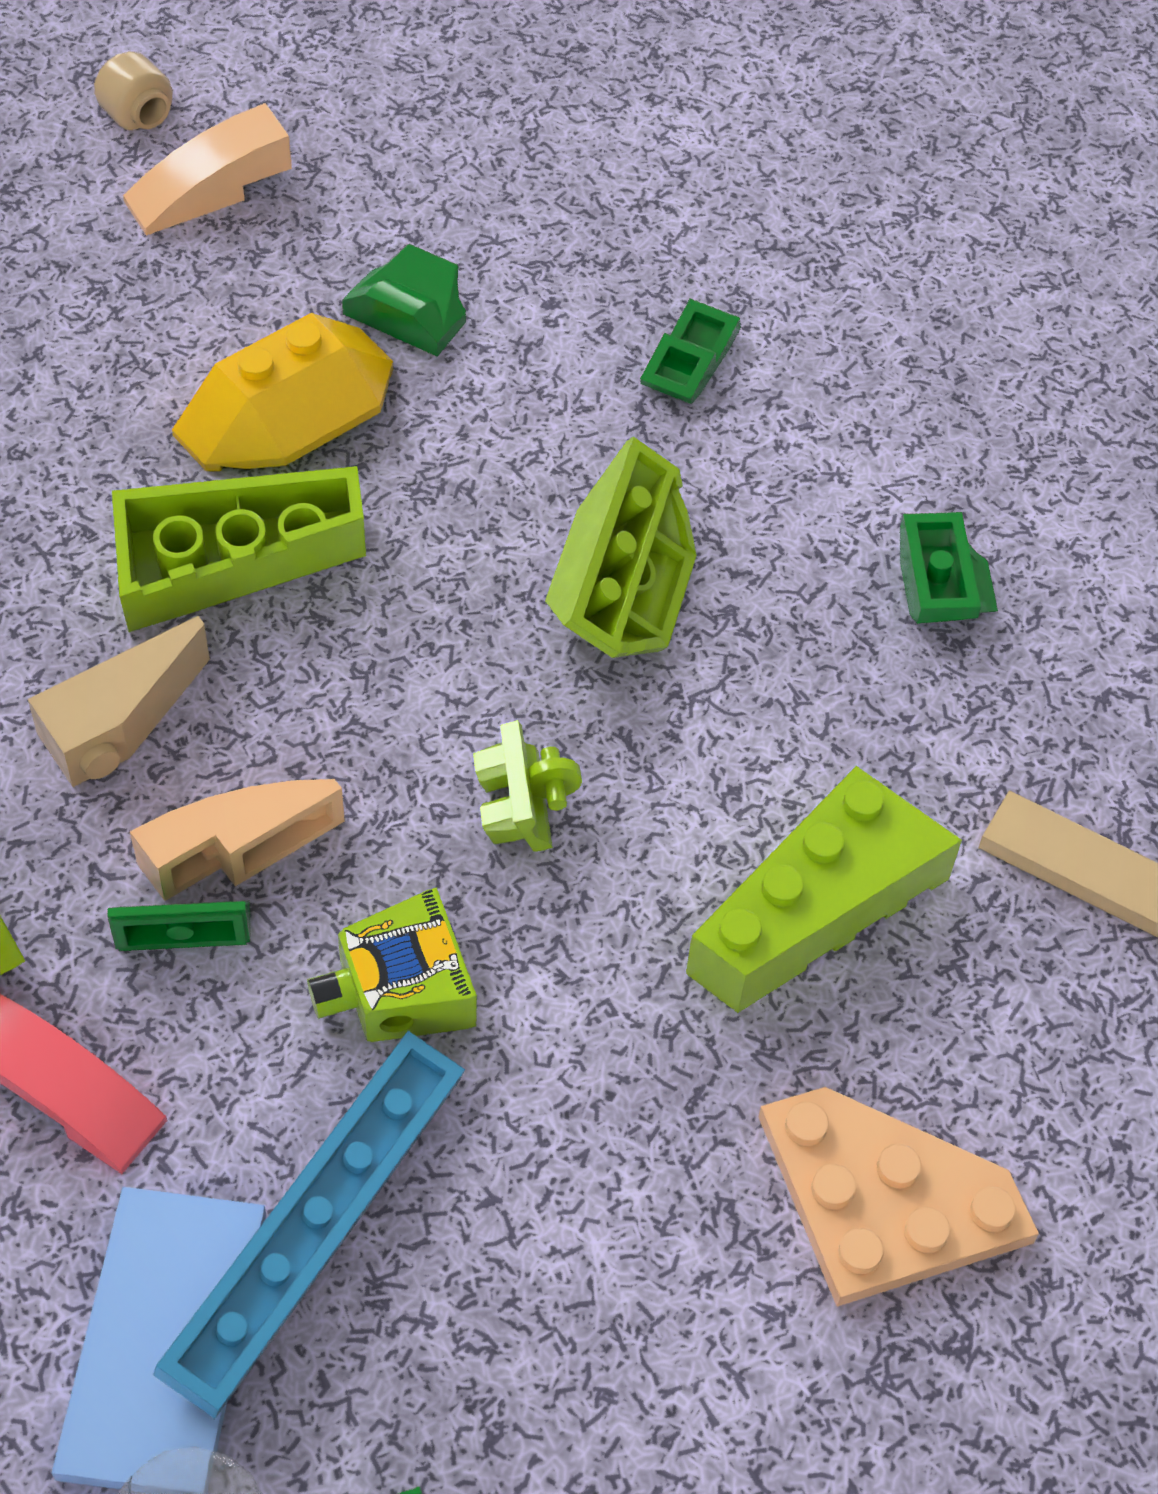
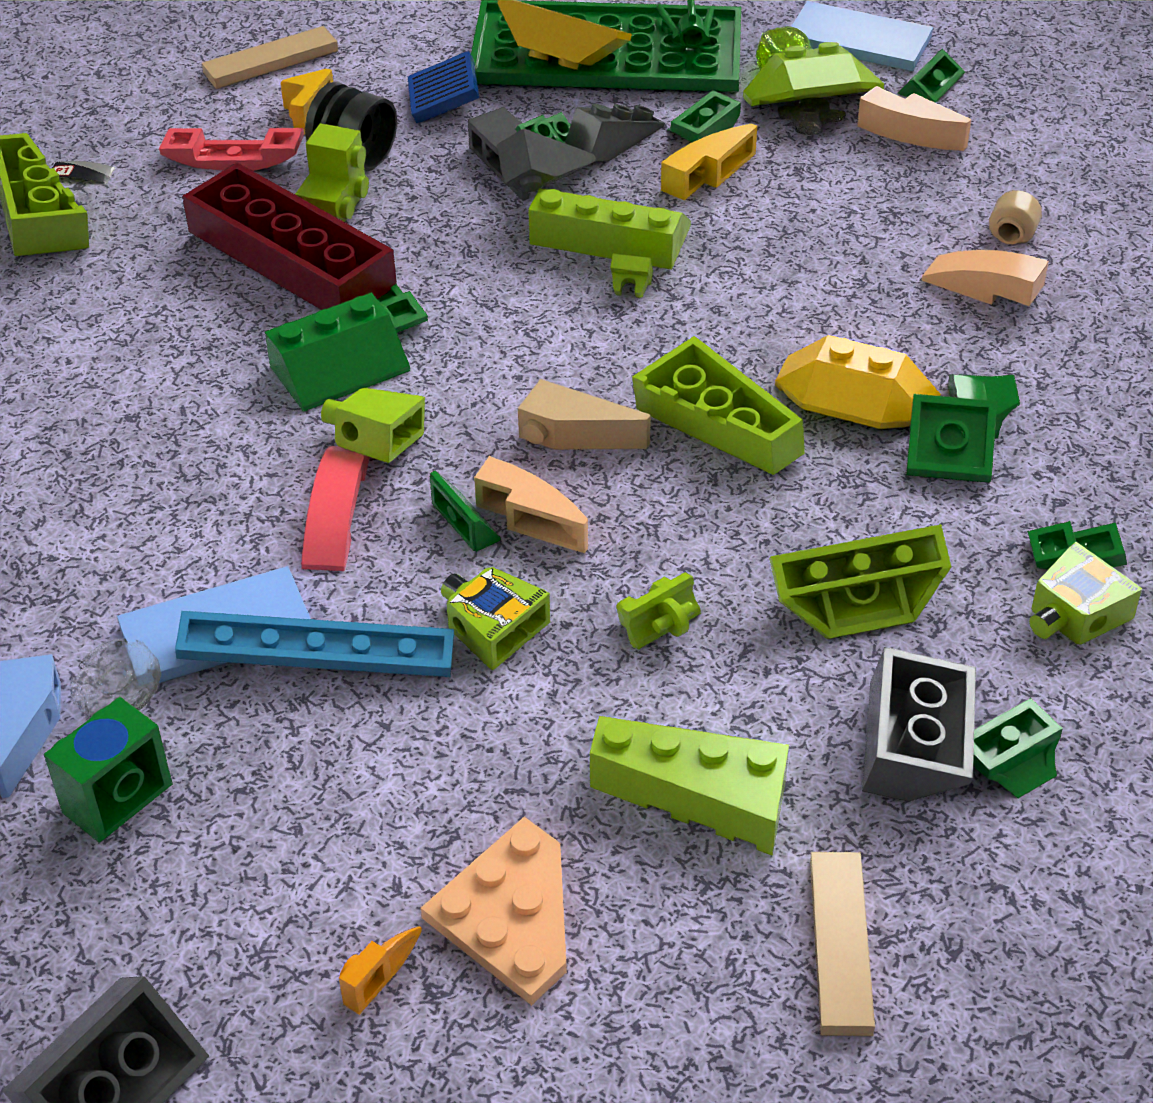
camera: 65 degrees right, 10 degrees down
(459, 356) = (951, 438): none -> green plate
(774, 390) = (1082, 597): none -> lime torso
(882, 635) = (919, 726): none -> dark grey slope
(916, 1407) = (373, 968): none -> light orange plate

